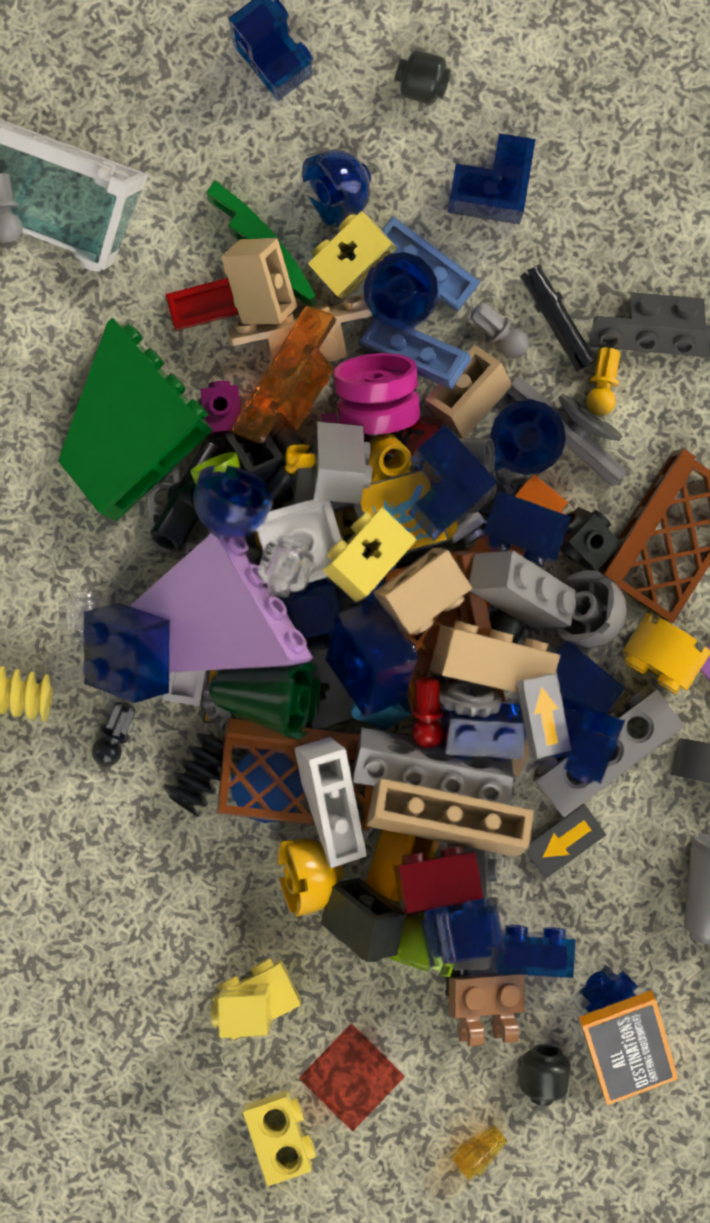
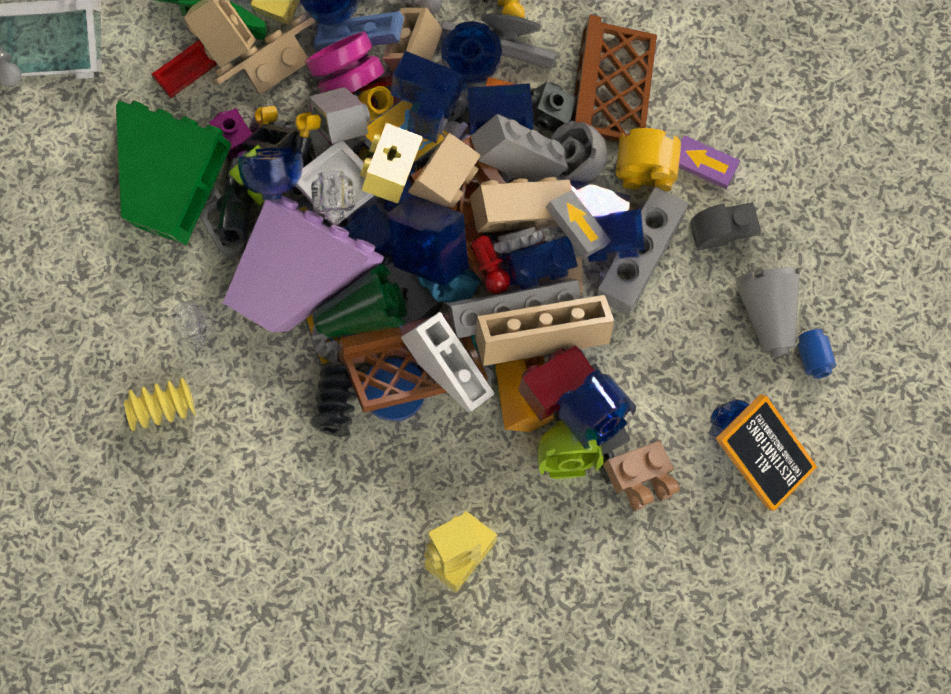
camera: 25 degrees left, 15 degrees down
(107, 750) = (254, 419): black axle -> none
(126, 652) = (237, 327): clear blue brick -> none
(186, 687) = (293, 344): white tile -> none
(269, 1138) = (521, 656): light yellow brick -> none
(291, 379) = (275, 85): clear orange bracket -> none
(307, 875) = (455, 435): yellow cylinder -> none
(352, 1077) = (564, 583): clear red piece -> none
(363, 920) = (514, 443): pearl dark grey brick -> none
(478, 1152) = (691, 593): clear yellow cone -> none
(536, 953) = (660, 418): clear blue brick -> none
(544, 1074) = (713, 507): pearl dark grey head -> none
(565, 840) = (641, 331): dark grey tile -> none

